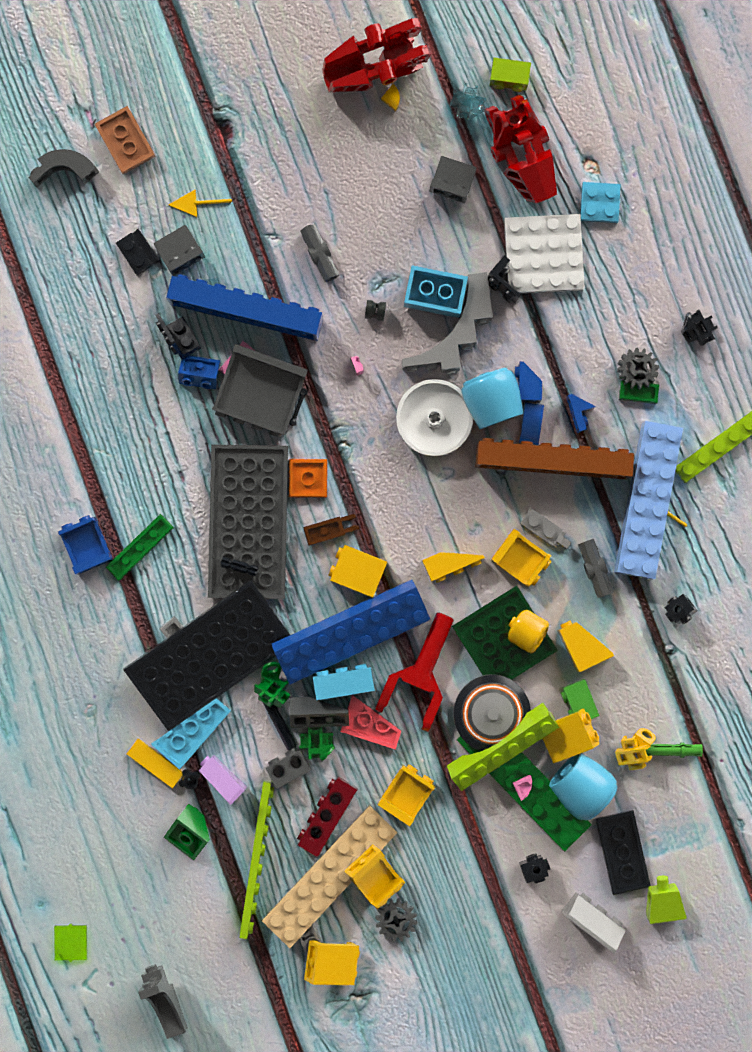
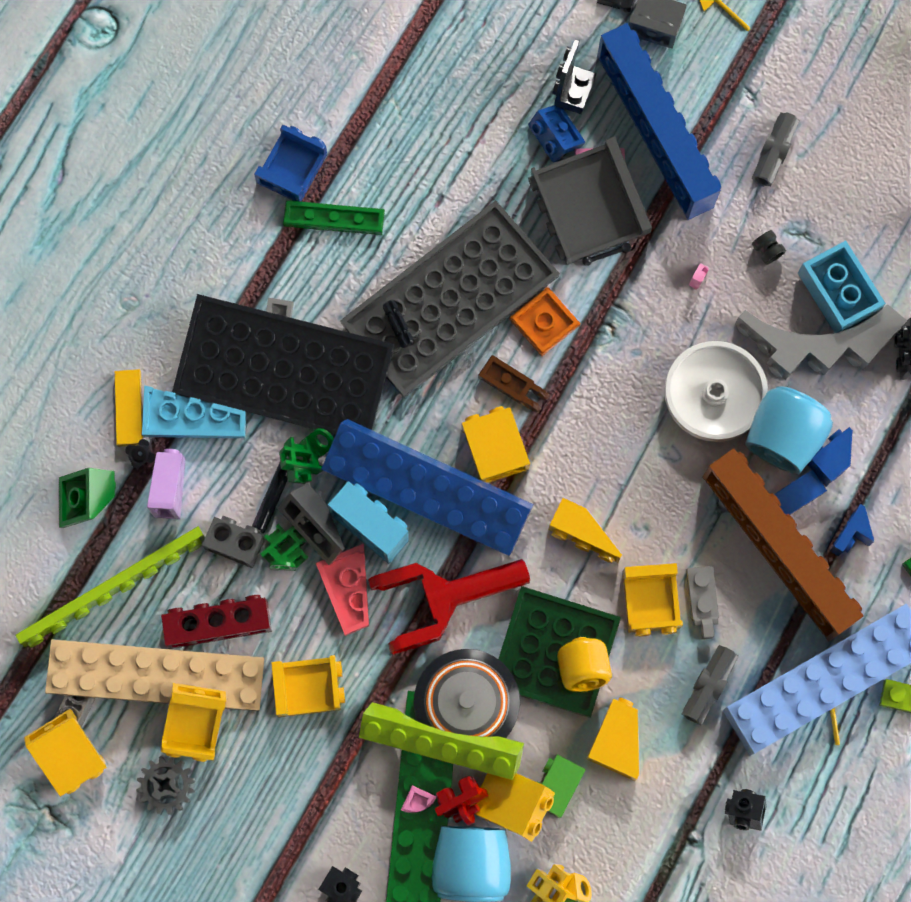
camera: 50 degrees right, 10 degrees down
(541, 771) = (451, 805): none -> red hips

